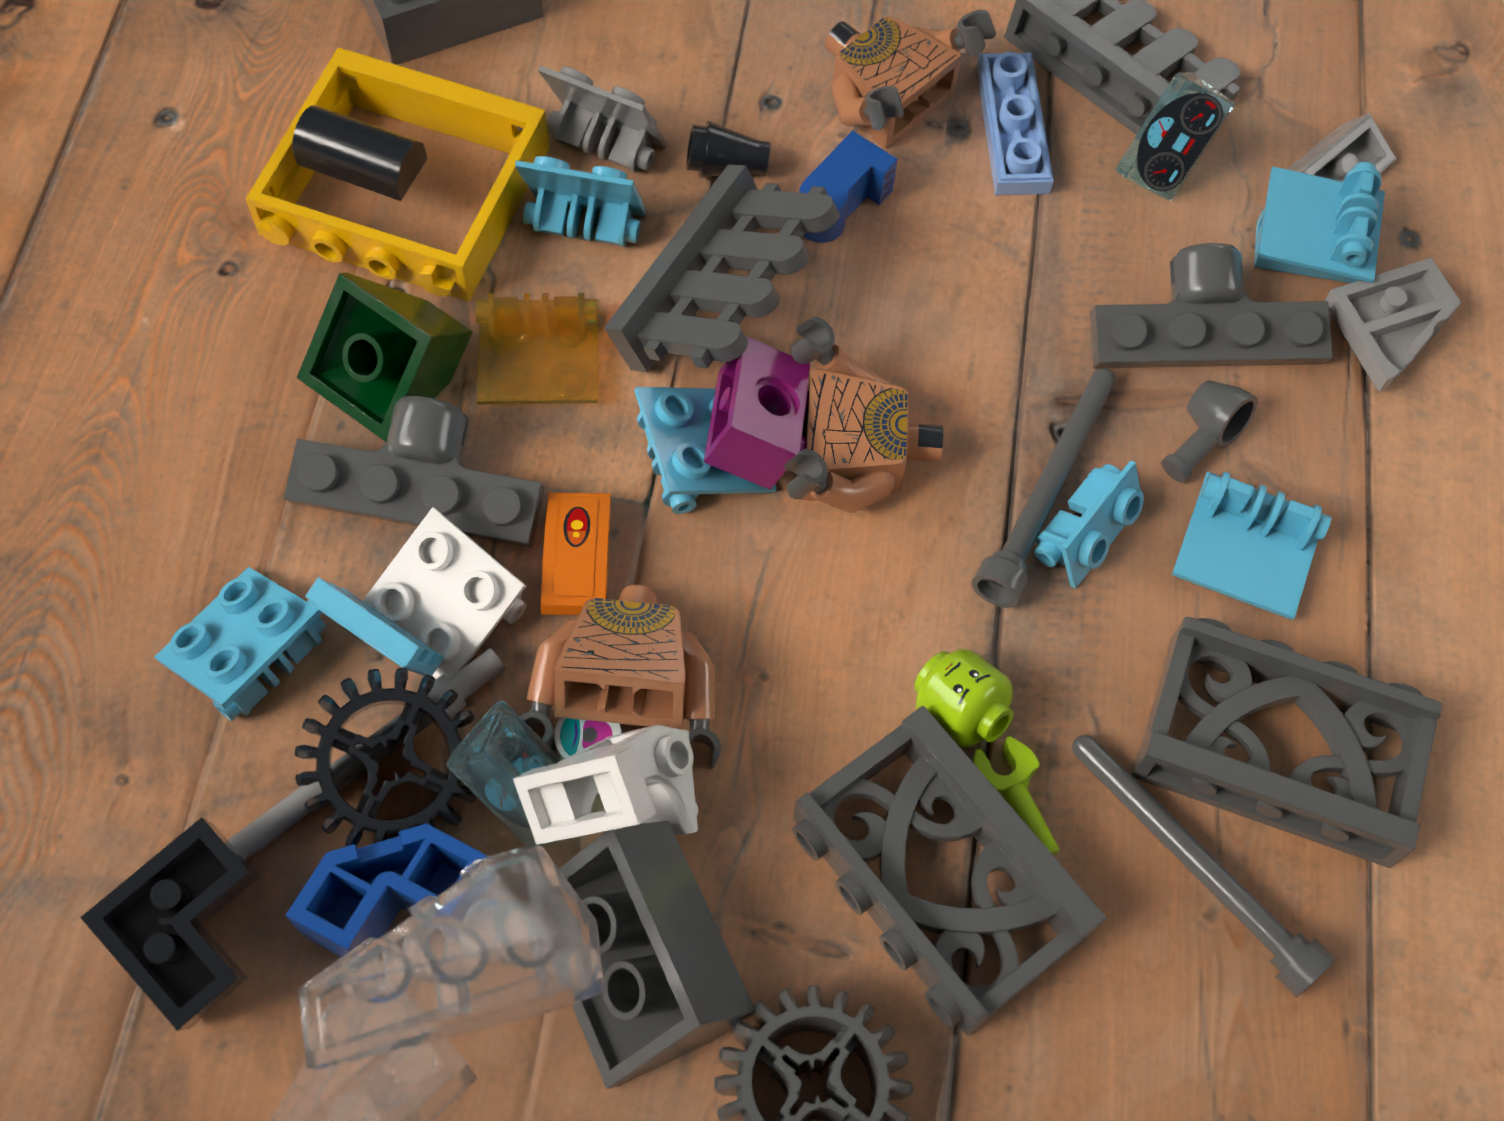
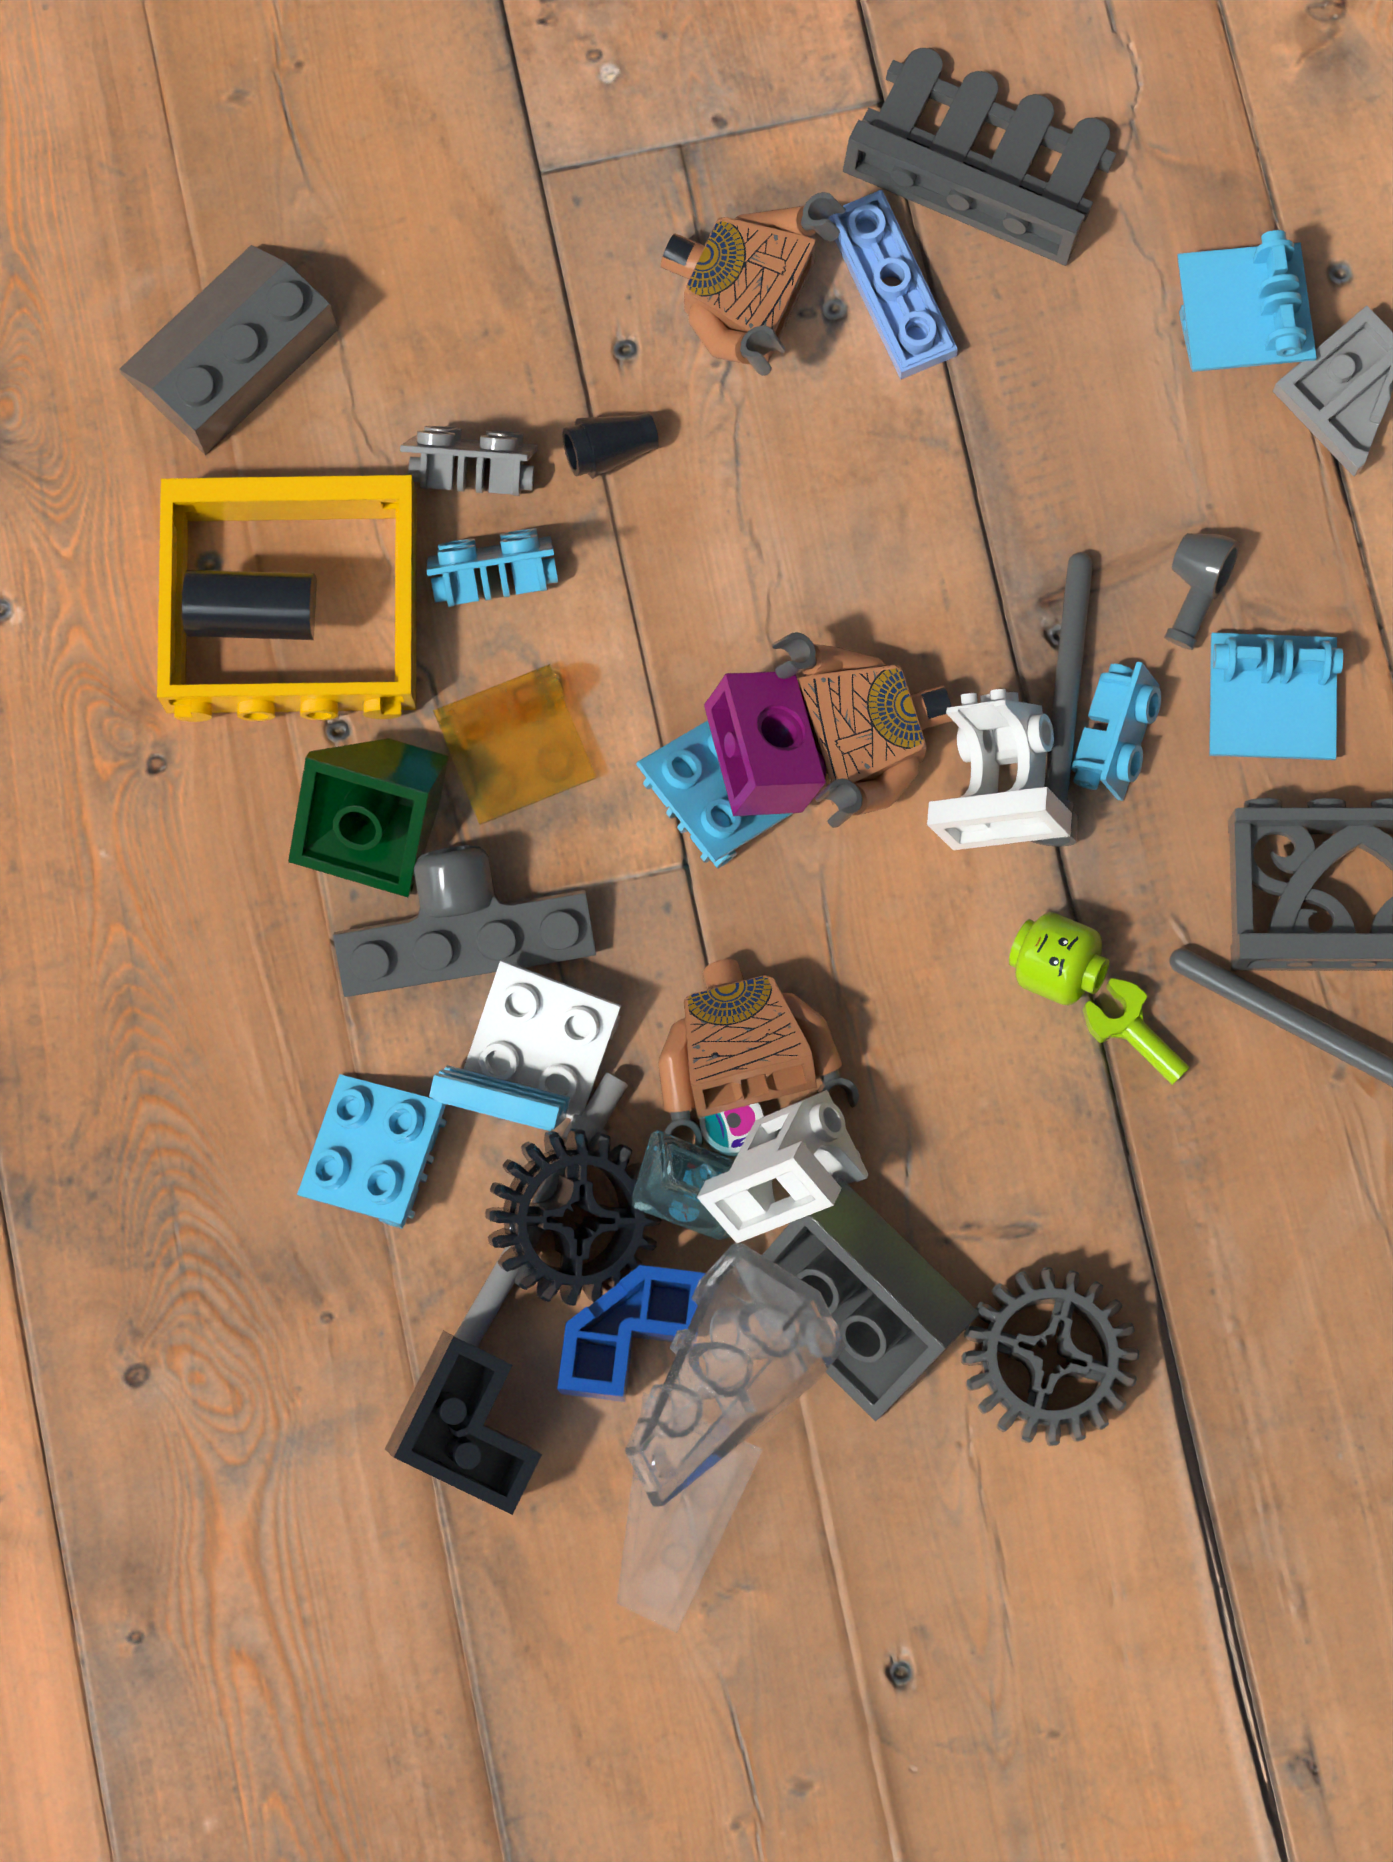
camera: 15 degrees left, 15 degrees up
(575, 551) = (645, 946): orange slope -> none
(693, 267) = (636, 592): dark grey fence -> none
(850, 175) = (741, 439): blue leg -> none
(945, 773) = (1183, 1111): dark grey fence -> none
(972, 528) = (990, 736): none -> white tile
(1175, 135) = (1069, 260): slope -> none
(1210, 321) = (1166, 462): dark grey plate -> none
(1344, 148) = (1245, 202): light grey slope -> none

